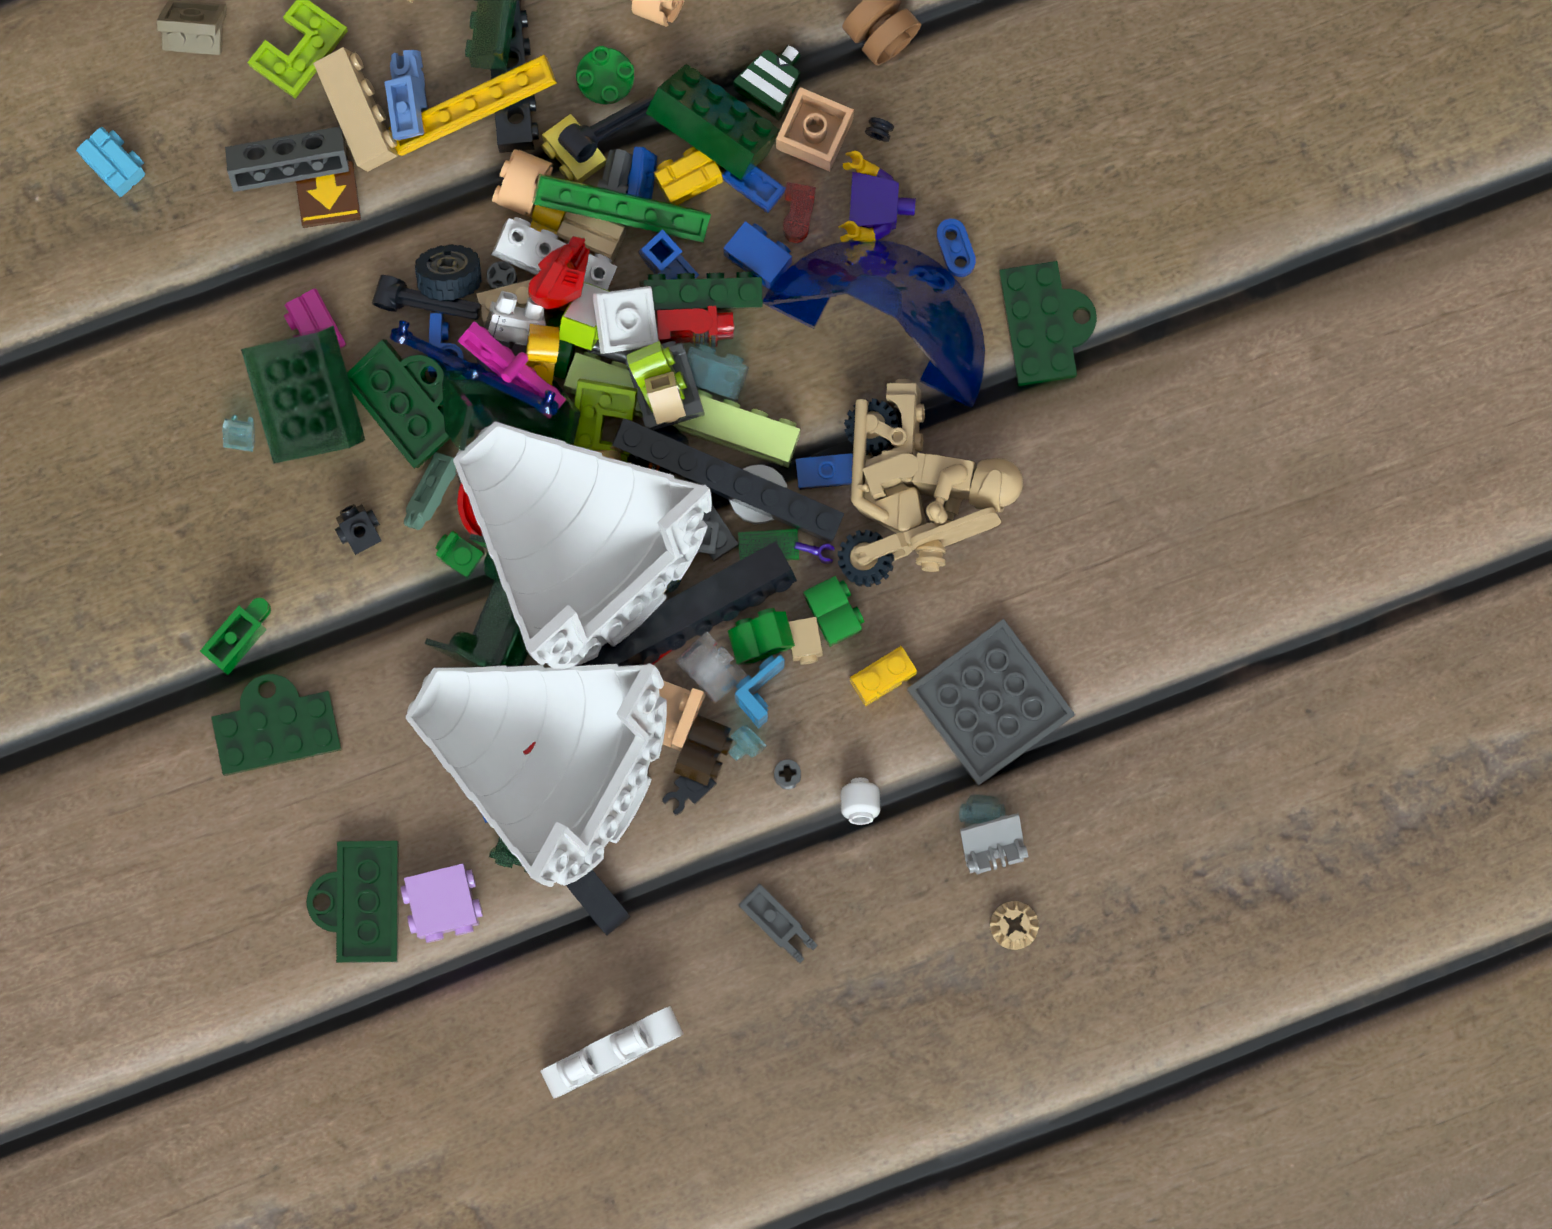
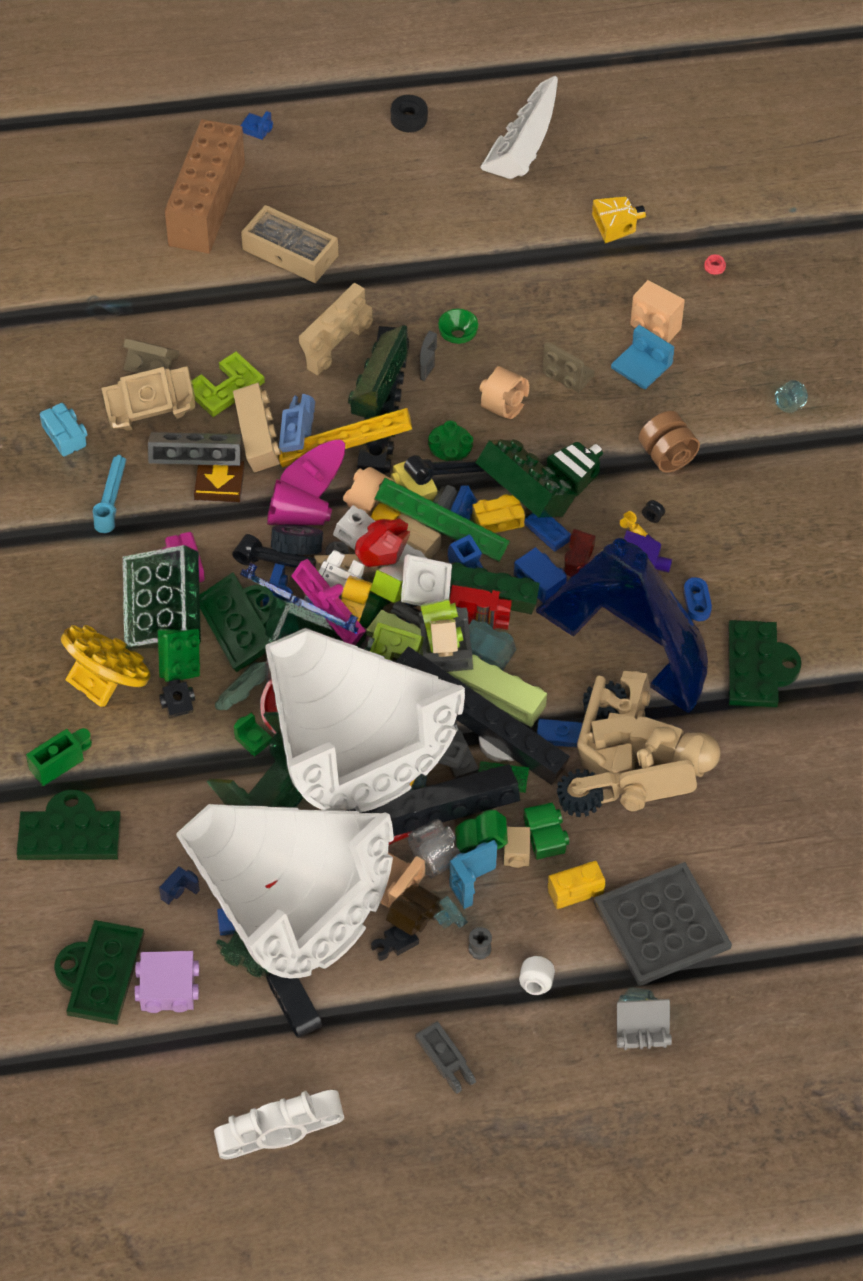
camera: 10 degrees right, 25 degrees down
(197, 247) = (105, 512): none -> medium azure axle
(208, 91) = (148, 395): none -> tan piece
(238, 434) = (103, 620): clear light blue tile -> none
(256, 500) = (101, 664): none -> yellow bracket
(344, 470) = (178, 654): none -> green bracket
(418, 777) = (176, 883): none -> dark blue bracket
(435, 221) = (296, 507): none -> dark pink cone
(442, 164) = (316, 468): none -> dark pink shield
(814, 129) = (603, 499): light nougat brick -> none
(815, 550) = (548, 785): dark purple hand -> none
(999, 926) = (648, 1111): tan gear -> none

